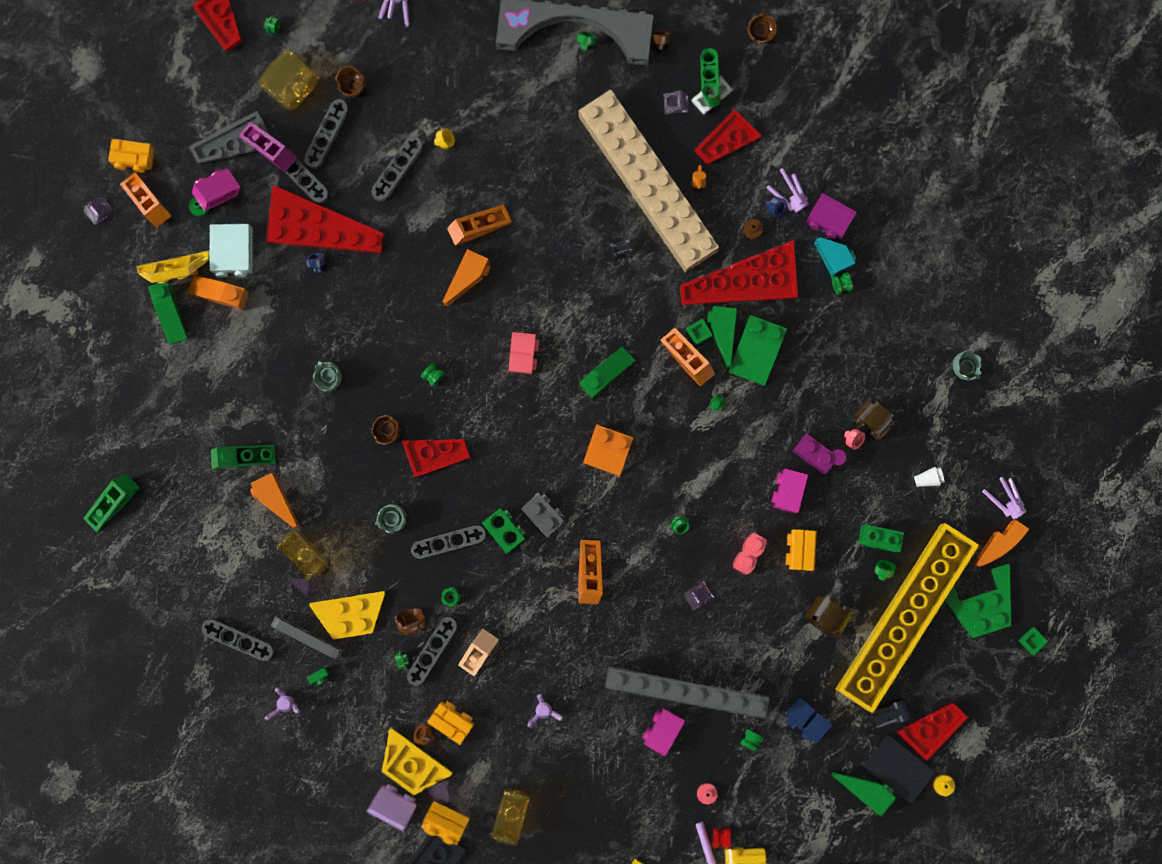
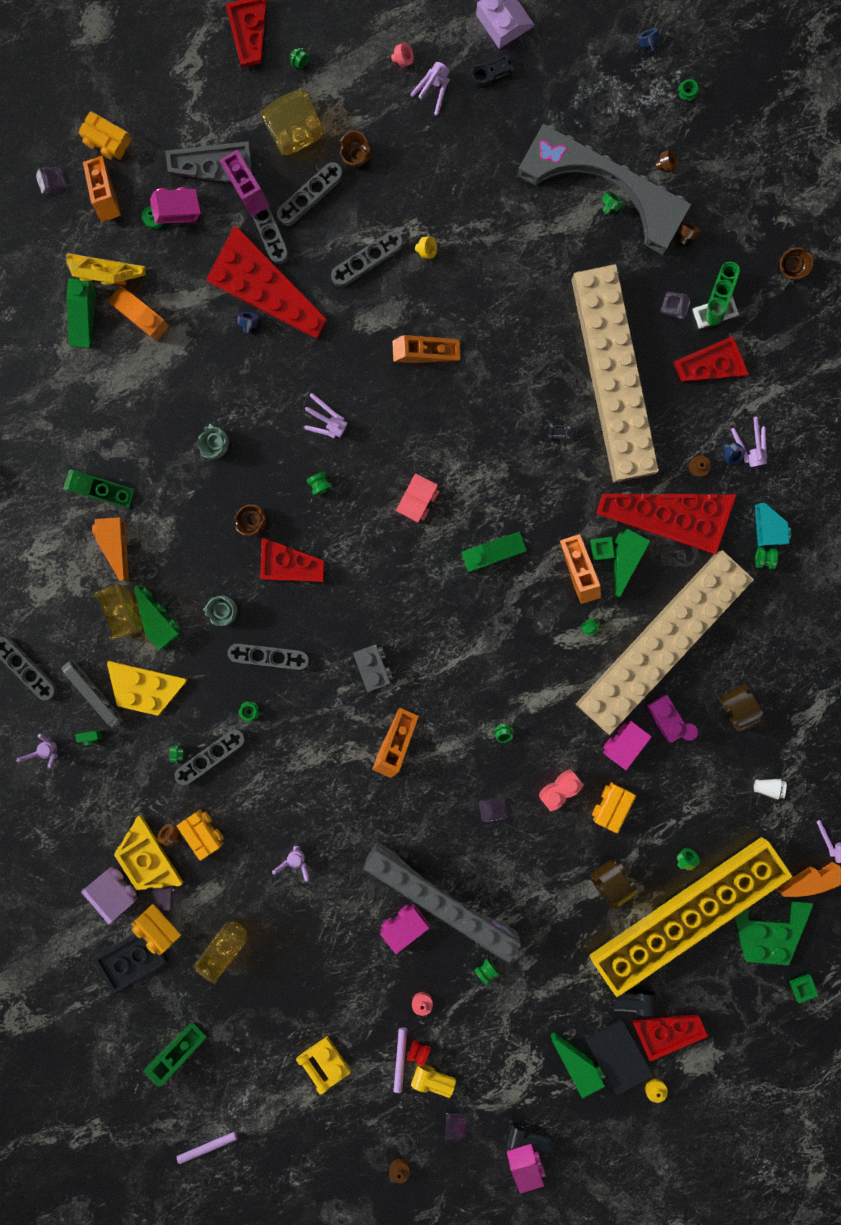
camera: 20 degrees right, 5 degrees up
(231, 249) = (167, 274): light aqua brick -> none
(303, 585) = (109, 646): clear purple slope -> none
(339, 553) = (156, 624): none -> green slope
(410, 621) = (199, 720): reddish brown hair -> none
(426, 319) = (335, 425): none -> lavender plant
(468, 274) = (395, 396): orange slope -> none
(478, 652) = (254, 777): light nougat slope -> none
(499, 534) = (321, 669): green brick -> none
(608, 450) = (463, 630): orange slope -> none
(699, 178) = (666, 392): orange piece -> none
(757, 350) = (653, 590): green slope -> none
(785, 390) = (664, 641): none -> tan brick
(816, 725) = (549, 974): dark blue piece -> none
(830, 217) = (784, 486): magenta slope -> none
(854, 438) = (712, 718): coral tile -> none
(880, 538) = (696, 828): green brick -> none

